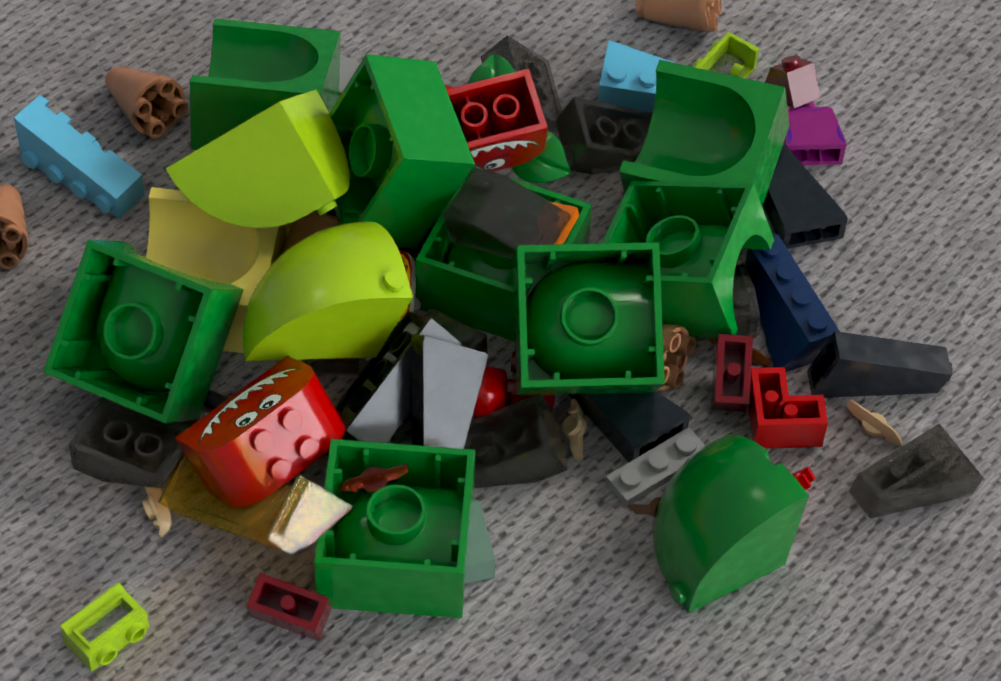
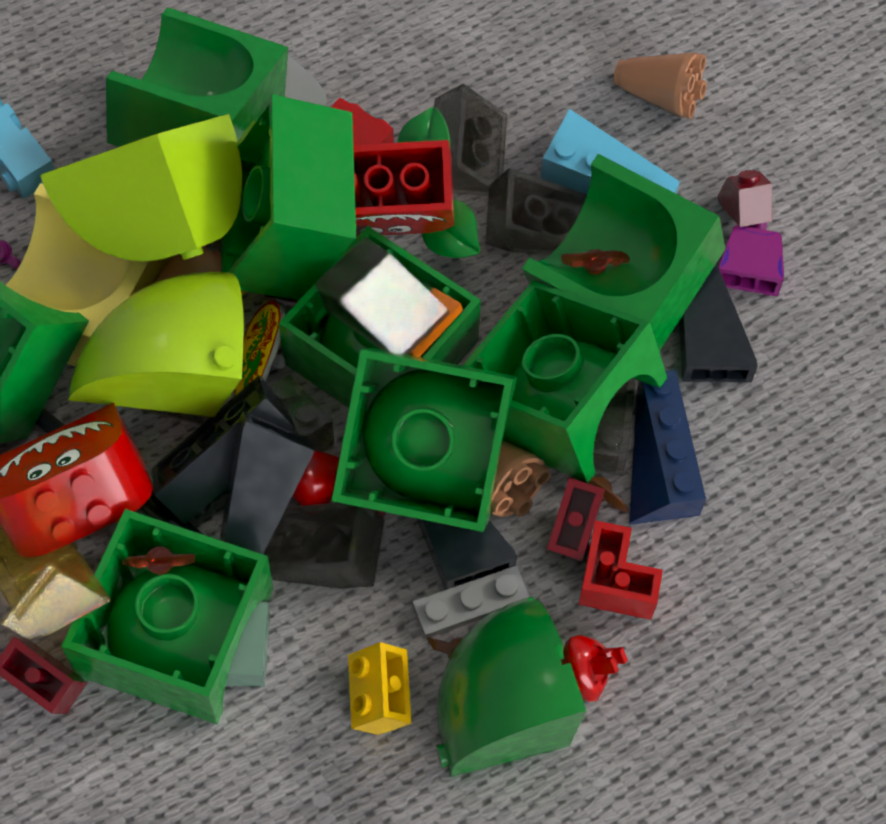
camera: 15 degrees right, 10 degrees up
(147, 99) = (81, 76): nougat cone -> none
(574, 428) = (398, 539): tan piece -> none
(603, 550) = (379, 688): none -> yellow brick
(679, 155) = (595, 259): none -> clear red piece
(730, 57) = (690, 157): lime window -> none
(874, 423) = (714, 606): tan piece -> none
(877, 367) = (737, 546): black slope -> none
(916, 476) = (737, 682): clear smoke wedge -> none

